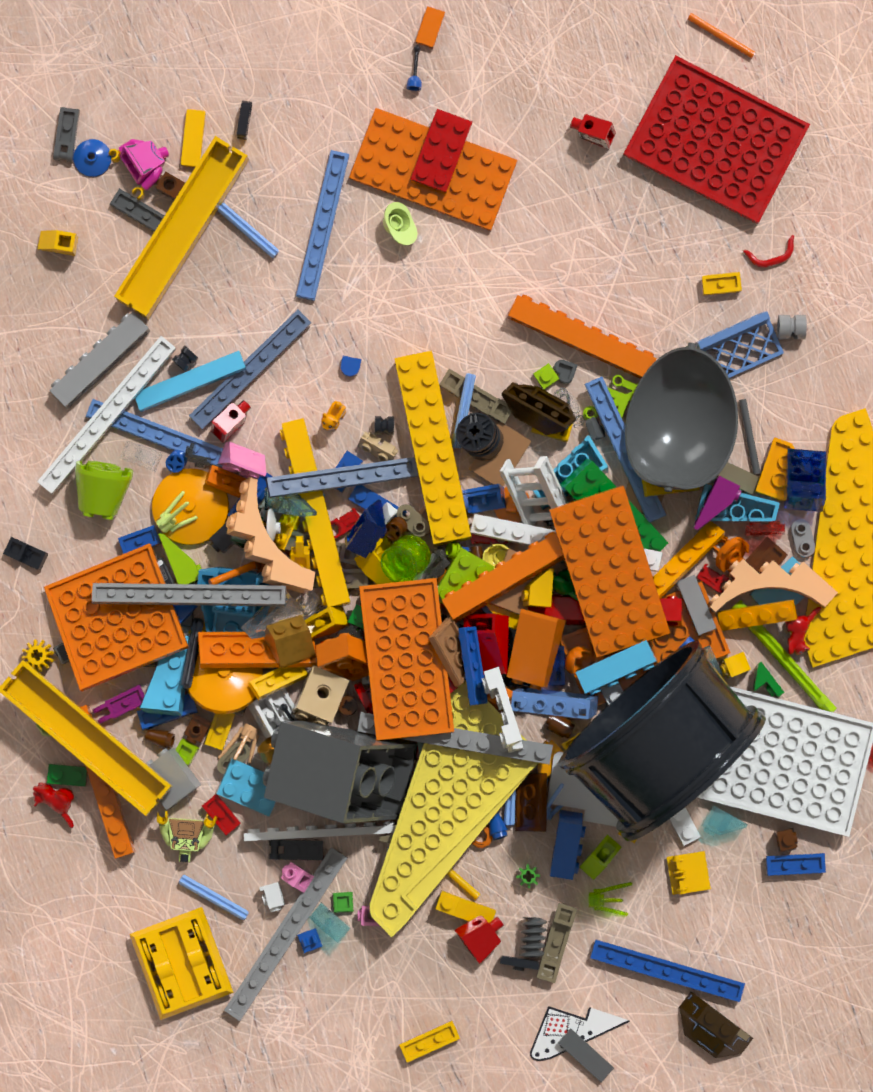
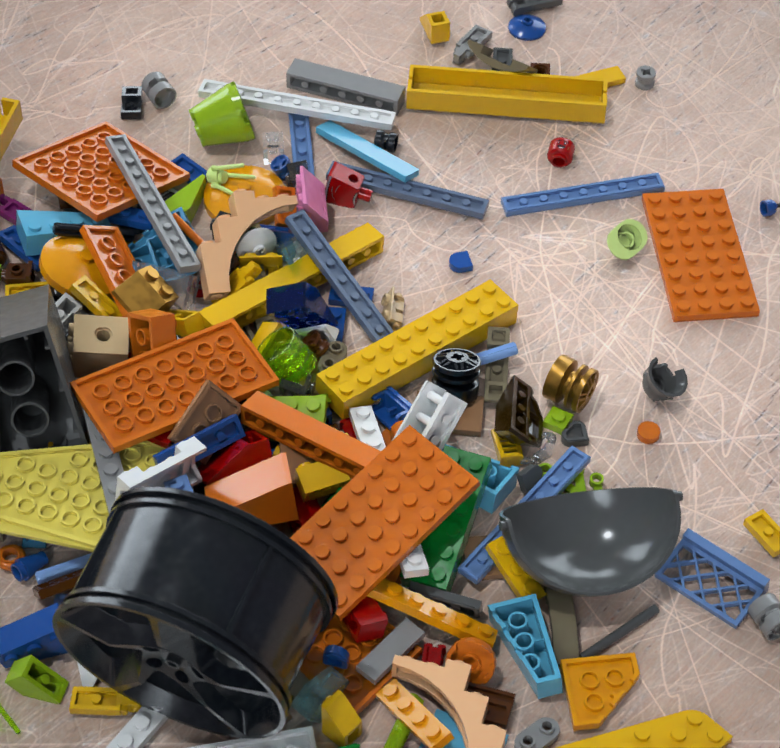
camera: 60 degrees right, 35 degrees down
(34, 525) = (158, 90): none -> light grey wheel
(41, 649) = (34, 137): yellow gear -> none
(95, 221) = (462, 48): none -> light grey hinge
(142, 161) = (548, 48): dark pink torso -> none
(142, 217) = (484, 54): none -> dark tan slope
(215, 97) = (645, 78): none -> light grey wheel
(244, 119) = (636, 104): black piece -> none
(248, 230) = (538, 144): light blue axle -> none
(269, 218) = (561, 152): none -> red head
(331, 419) = (401, 261): light orange animal -> none
(385, 426) = (417, 304): black wheel -> none
(441, 150) = (721, 245): red plate -> none
(527, 352) = (570, 383): none -> pearl gold wheel
(558, 280) = (661, 383): none -> dark grey helmet
(580, 337) = (619, 422): orange brick -> none
(590, 315) = (648, 432): none -> orange tile
(676, 537) = (451, 600): none -> dark grey tile
(719, 498) = (518, 599): magenta slope -> none
(773, 528) = (520, 682): clear red plate -> none
(805, 480) = (603, 699): clear blue slope -> none

